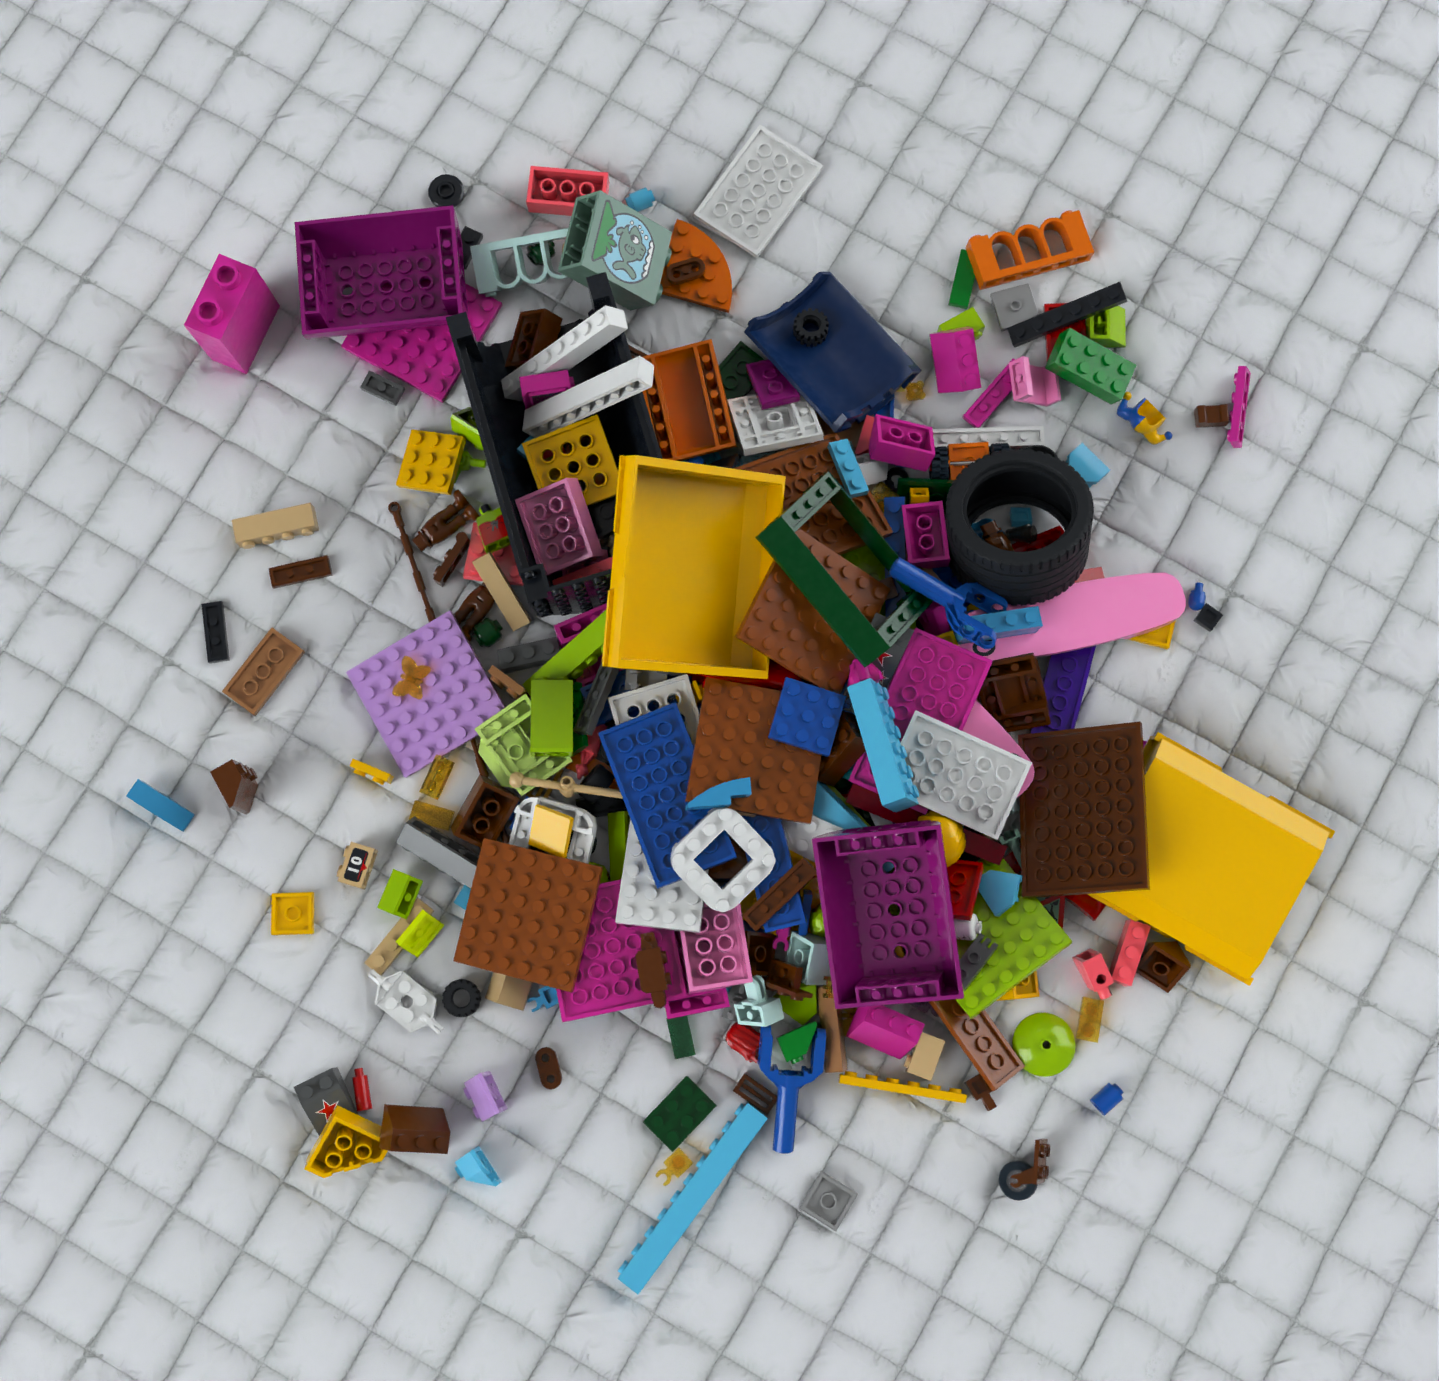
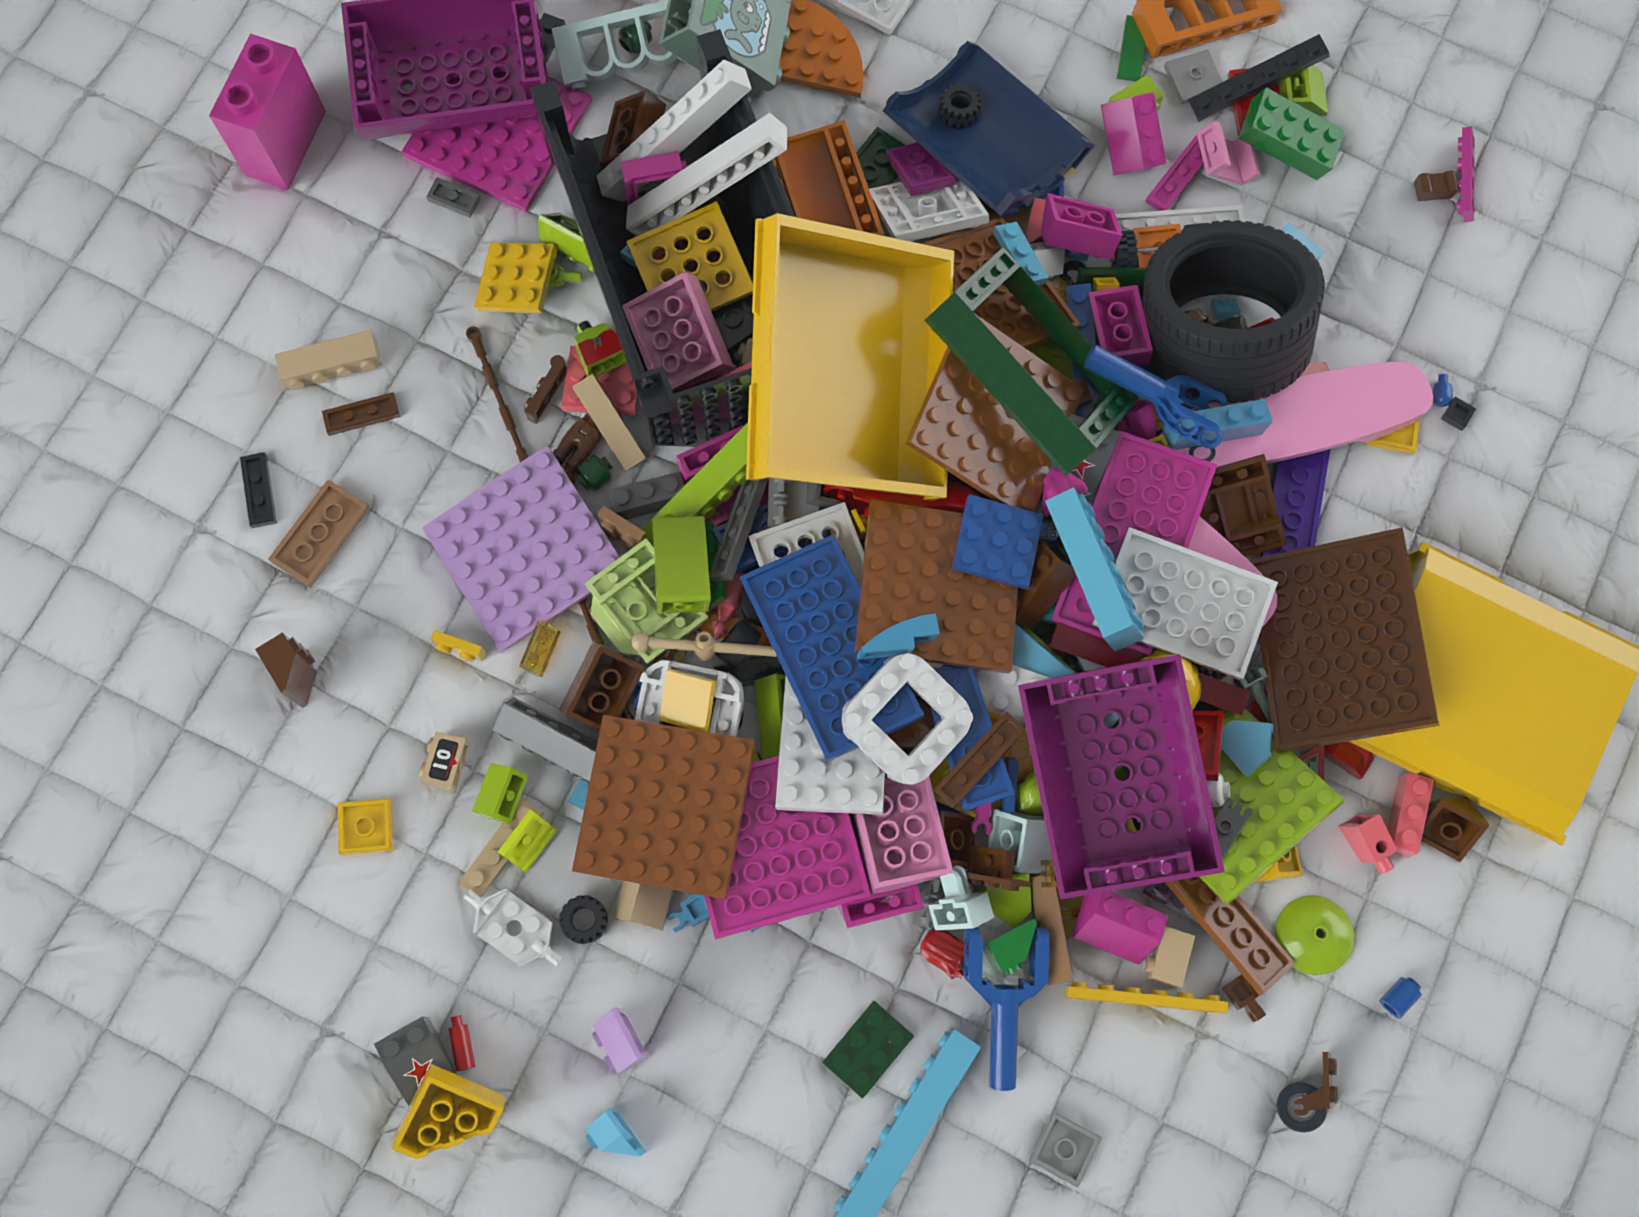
camera: 10 degrees left, 5 degrees down
(160, 805) = (193, 700): dark azure slope -> none
(411, 679) = (504, 529): clear yellow piece -> none
(414, 1129) = (532, 1089): reddish brown slope -> none
(432, 815) = (539, 696): clear yellow tile -> none
(437, 530) = (525, 354): reddish brown piece -> none
(546, 1068) = (698, 1001): reddish brown plate -> none
(652, 969) = (825, 864): reddish brown hinge -> none
(676, 1164) = (868, 1113): clear yellow plate -> none
(681, 1037) = (862, 951): clear green tile -> none
(684, 269) = (807, 49): reddish brown plate -> none
(761, 1087) = (942, 1006): reddish brown tile -> none
(911, 395) = (1085, 179): clear yellow plate -> none
(1089, 1019) = (1369, 900): clear yellow plate -> none
(1143, 419) = (1357, 193): yellow piece -> none

